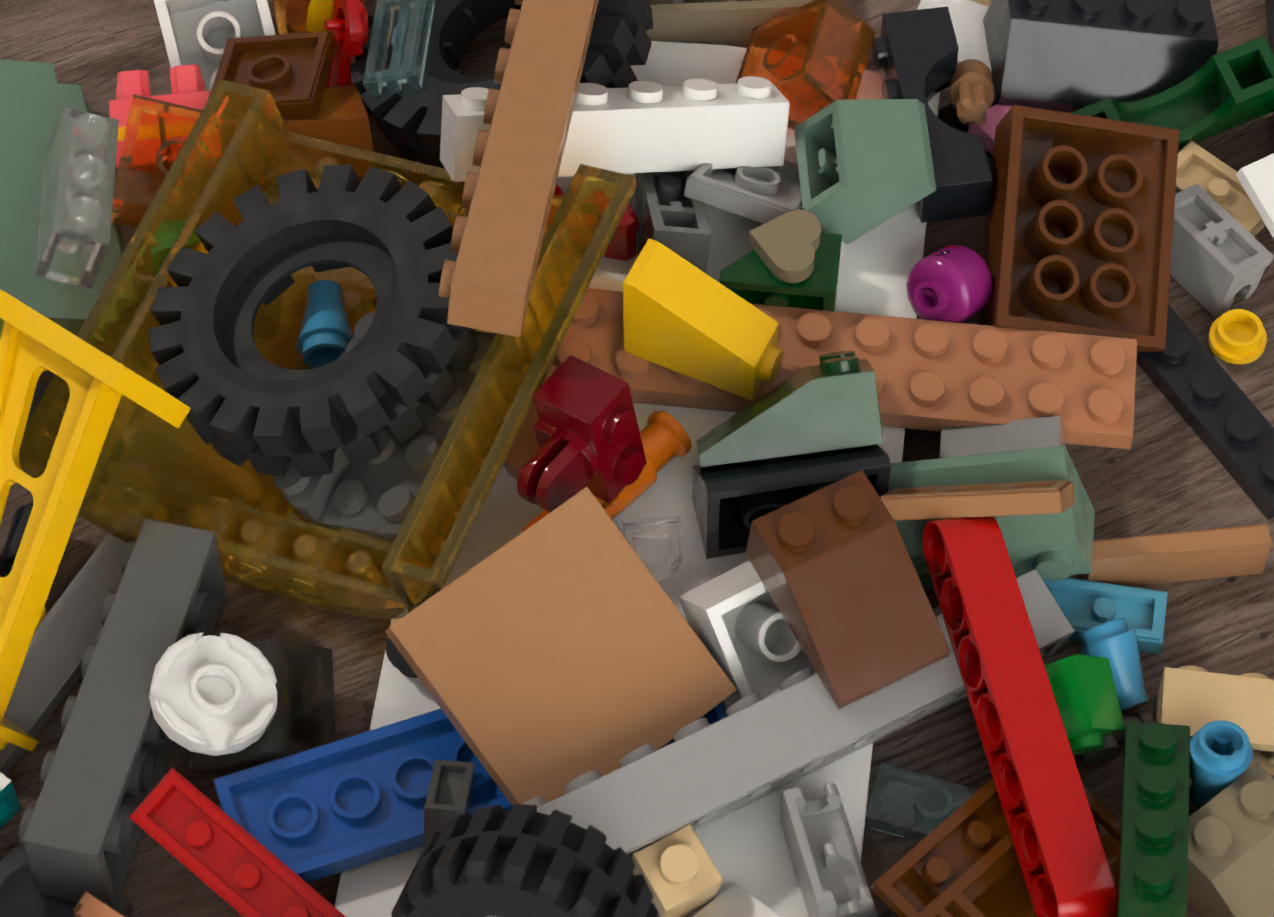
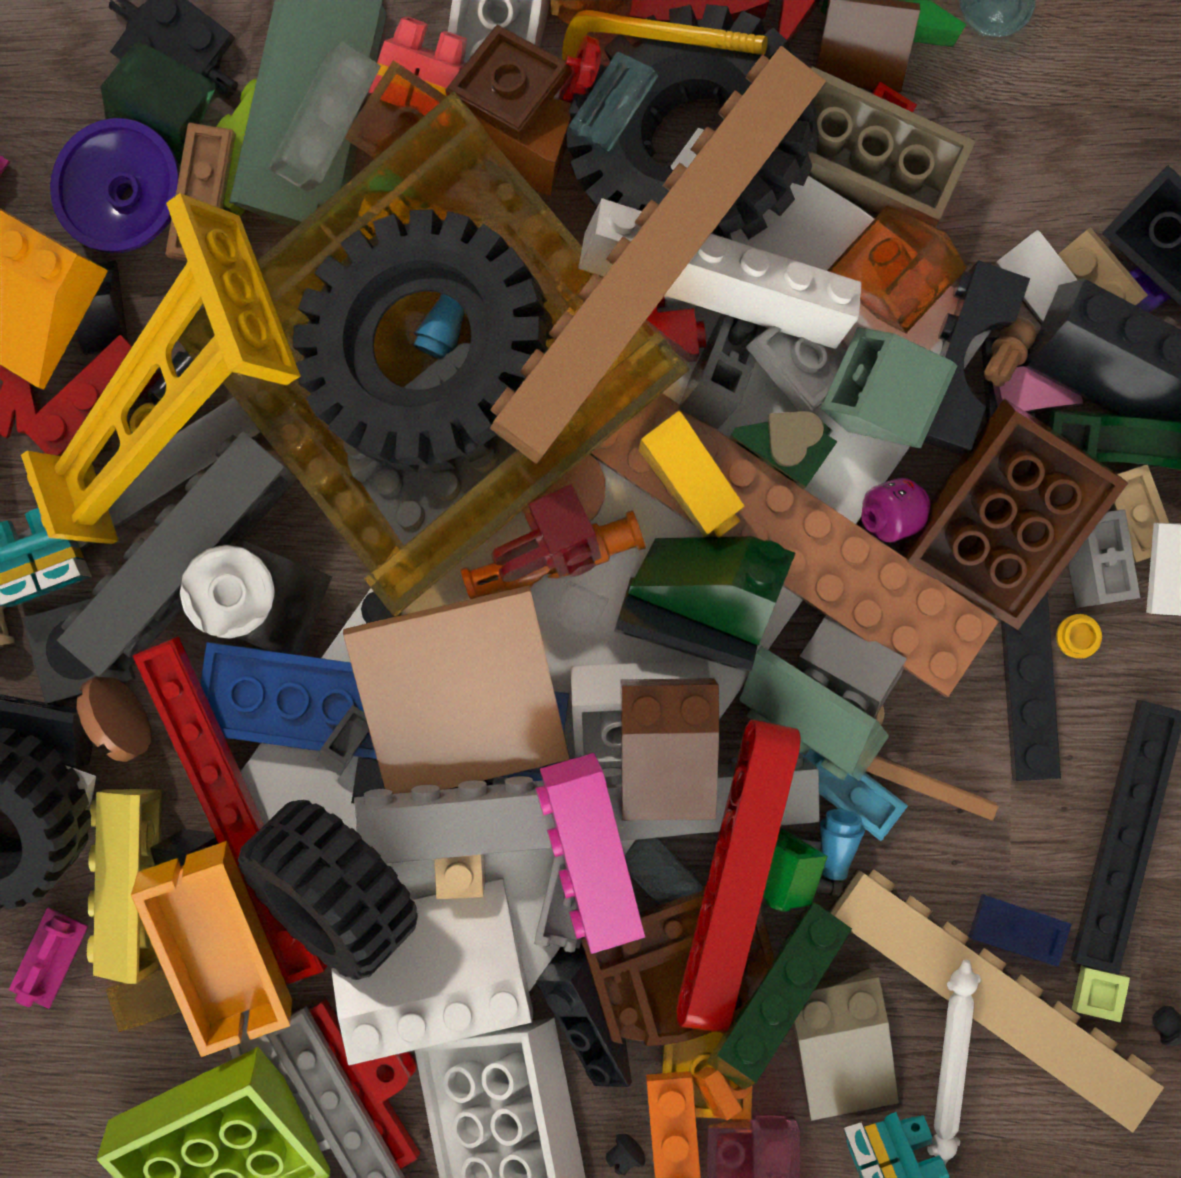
camera: 25 degrees right, 30 degrees up
(827, 752) = (591, 851): none -> dark pink brick
(979, 500) = (797, 720): medium nougat tile -> none
(1218, 757) = (867, 960): dark azure cone -> none

